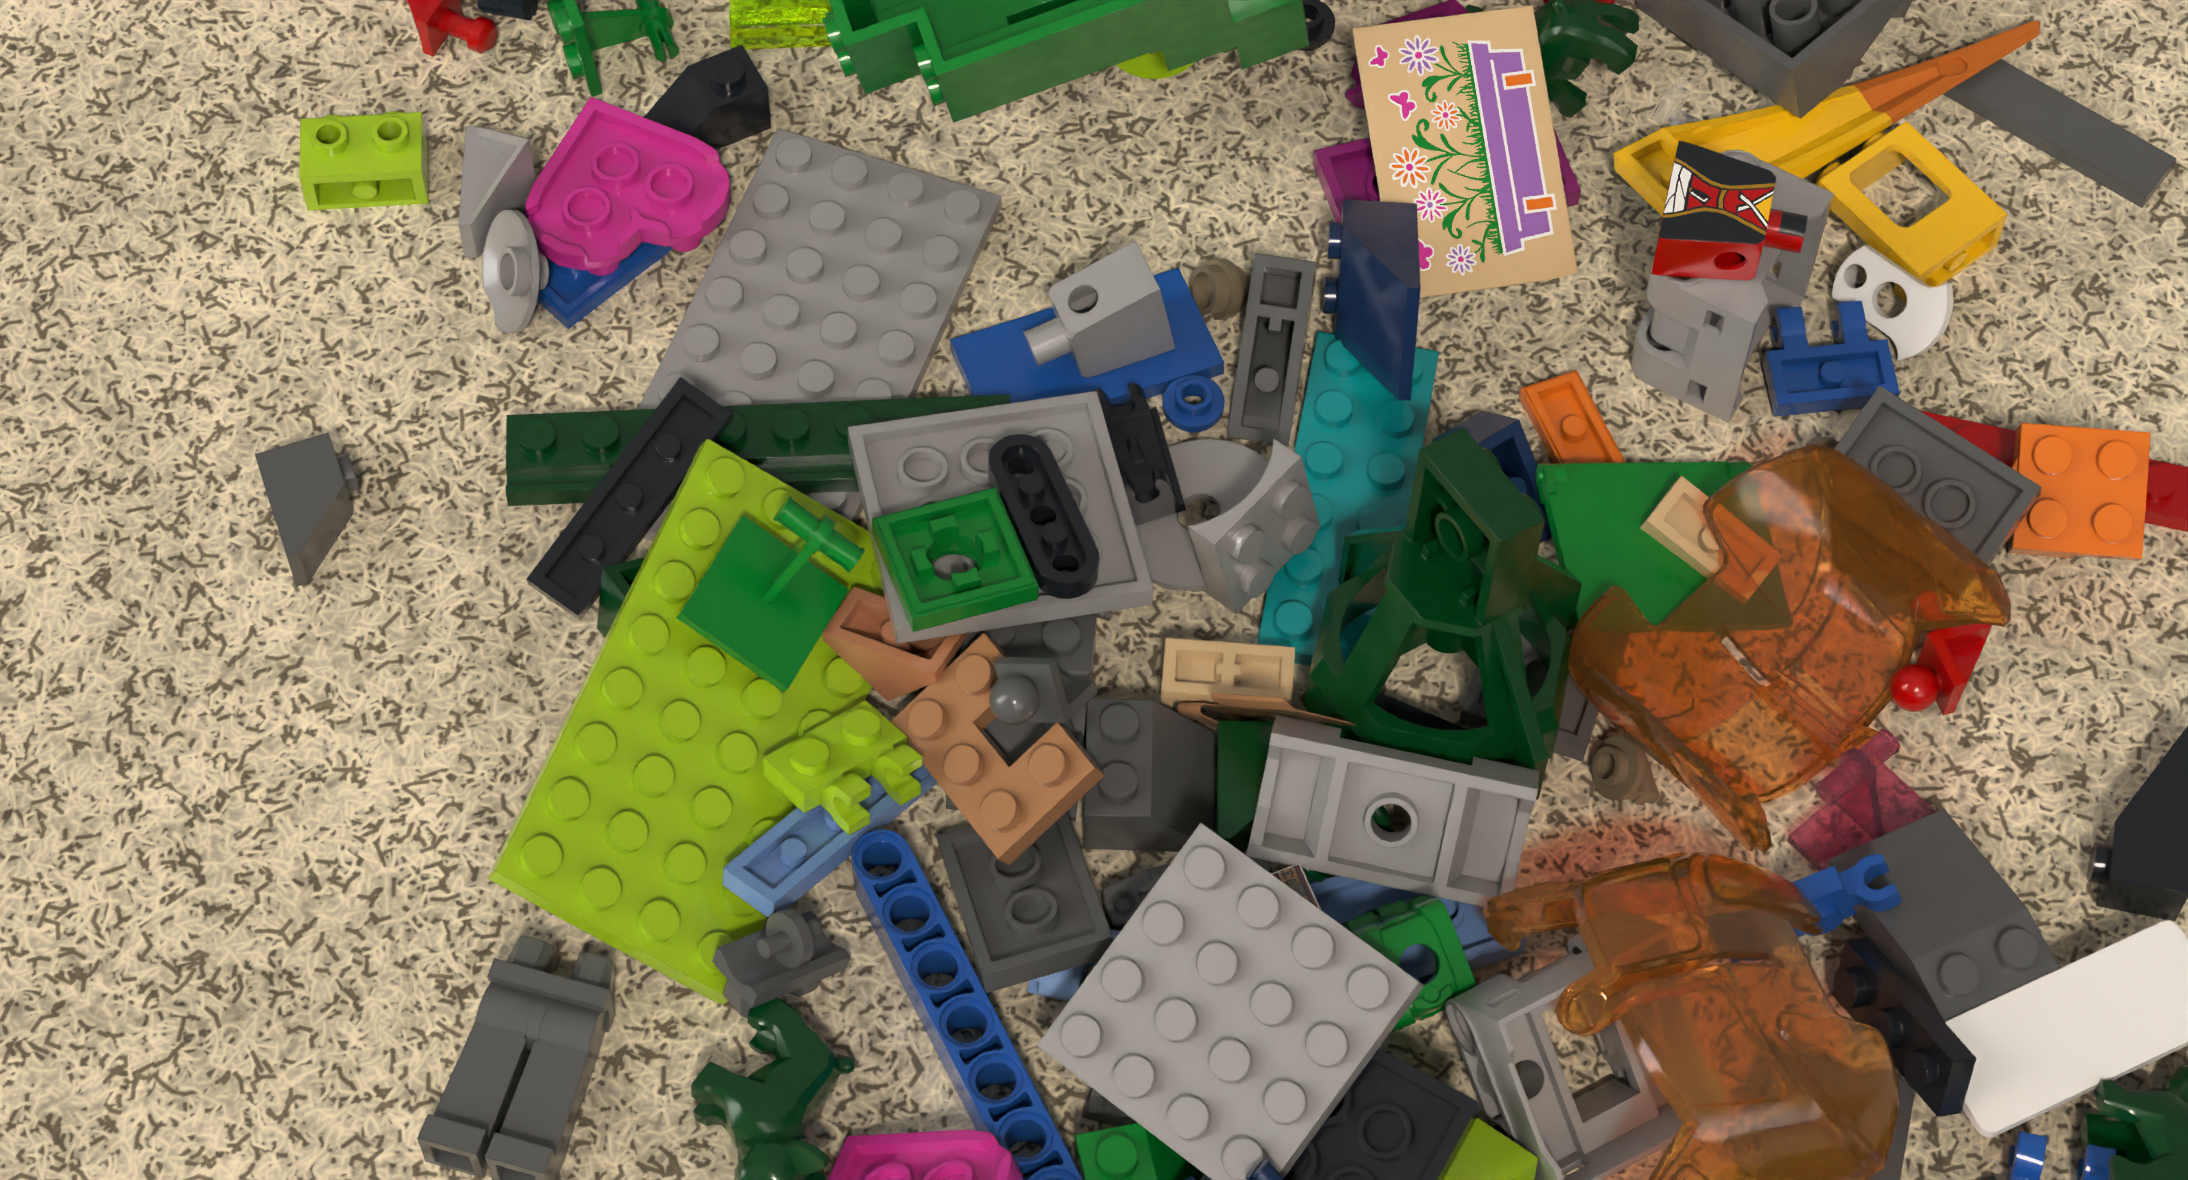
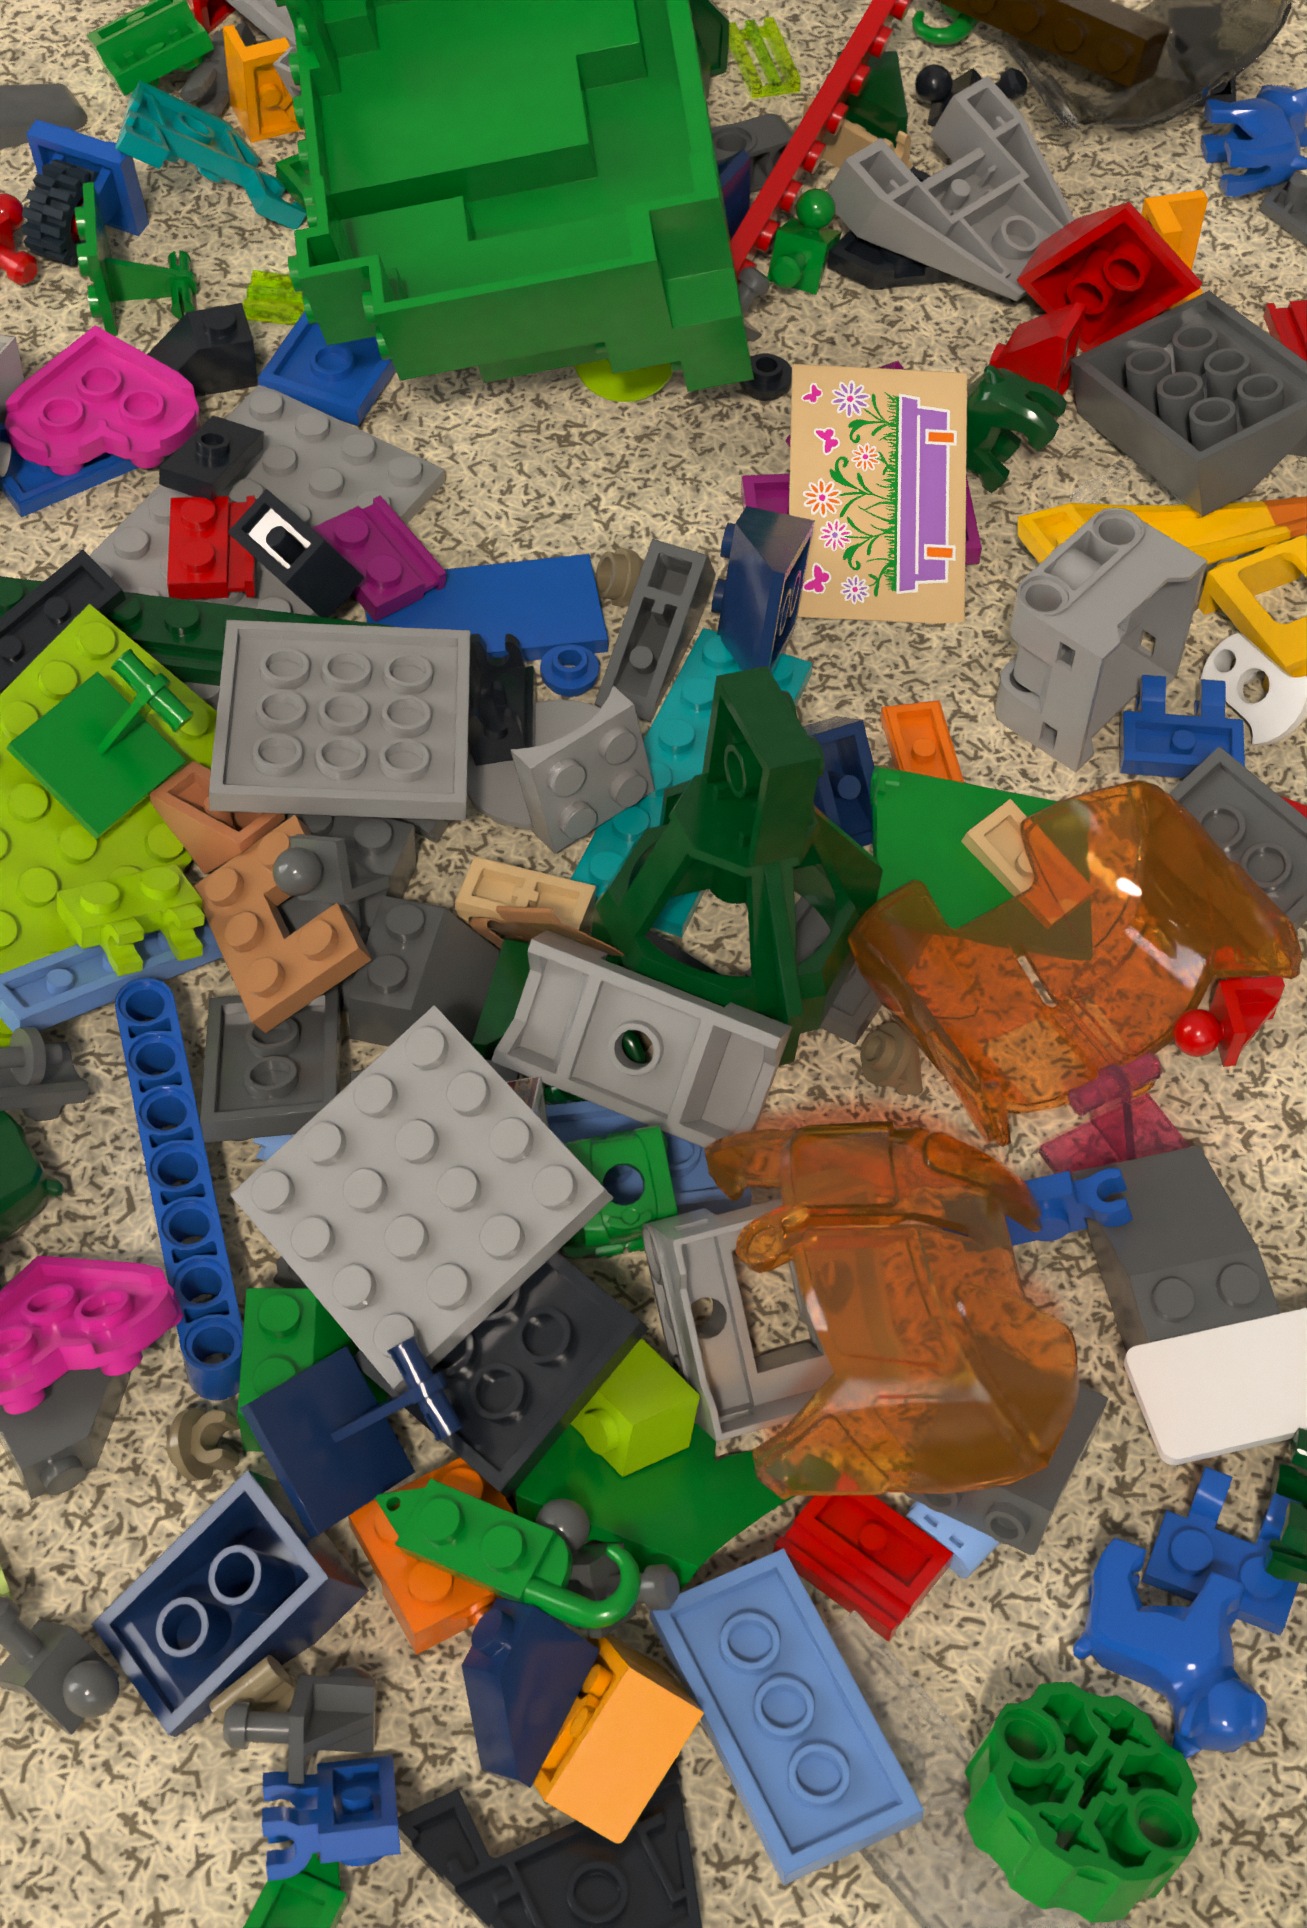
camera: 10 degrees right, 5 degrees down
(764, 234) = (211, 458): none -> black plate
(792, 336) = (201, 553): none -> red plate
(835, 108) = (330, 378): none -> blue plate
(890, 335) = (296, 554): none -> black slope
(965, 316) = (386, 554): none -> magenta plate
(965, 526) = (294, 714): green piece -> none
(1044, 497) = (377, 719): black plate -> none
(1105, 316) = (500, 573): light grey torso -> none
(1720, 218) = (1086, 557): torso -> none
(1919, 1040) = (1107, 1341): black plate -> none

